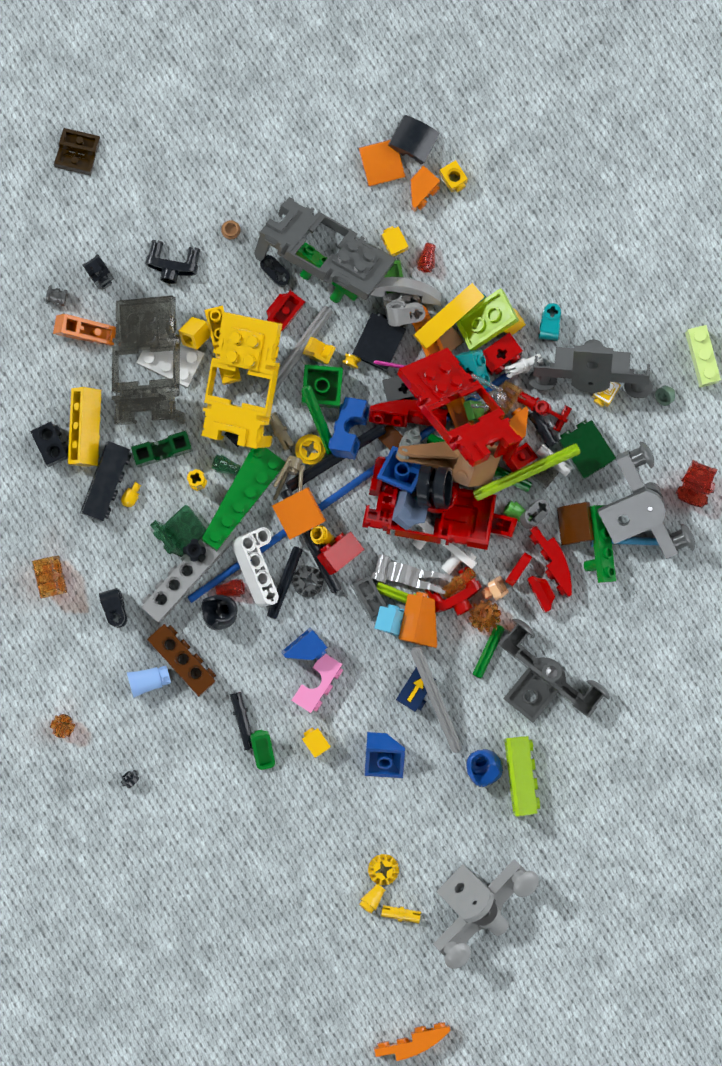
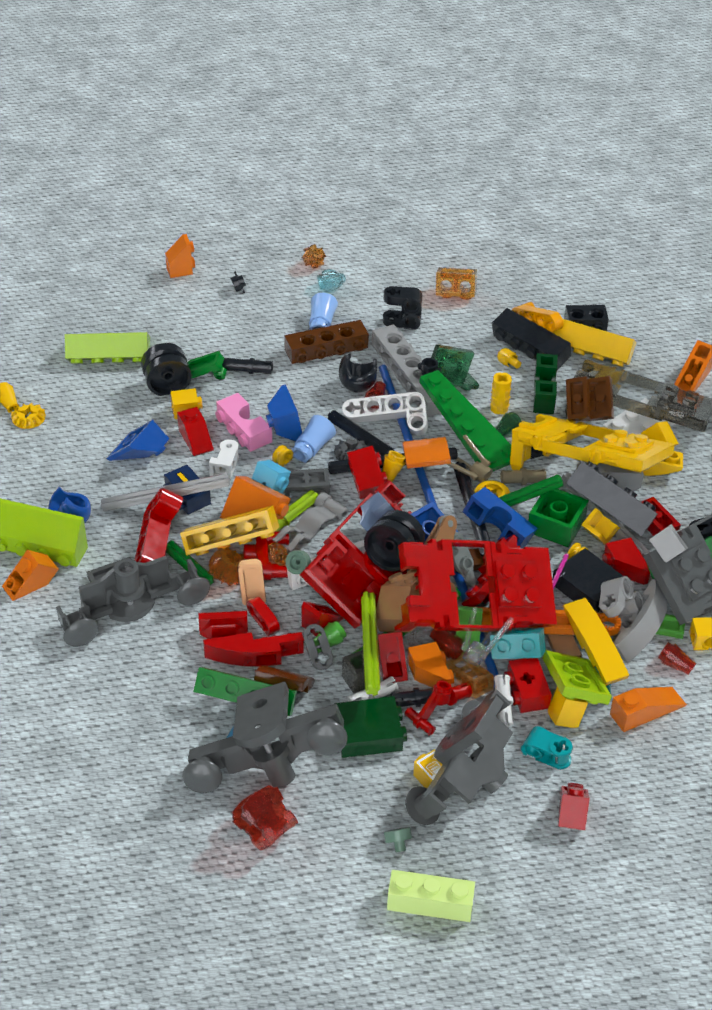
camera: 110 degrees right, 40 degrees down
(64, 502) = (545, 318): none -> light orange beam
(90, 695) = (330, 280): none -> clear light blue rock
(125, 846) = (179, 258): none -> orange slope
(186, 398) = (589, 399): none -> reddish brown slope
(271, 849) = (106, 346): none -> lime slope
(288, 777) = (165, 369): none -> black wheel
(299, 346) = (611, 498): none -> brick
(314, 616) = (313, 438): none -> light blue plant
(342, 632) = (282, 455): none -> yellow bush
(343, 322) = (627, 560): none -> red slope
(348, 716) = (194, 431): none -> red slope
(352, 282) = (668, 543): none -> light grey panel
(360, 676) = (226, 459): none -> white leg
(459, 626) = (229, 530): none -> yellow brick
(471, 557) = (297, 561): none -> sand green tile
(479, 687) = (156, 525): none -> red beam
(481, 266) = (644, 705): none -> orange slope
(558, 761) = (30, 574): none -> orange slope
(591, 290) = (573, 806): none -> slope

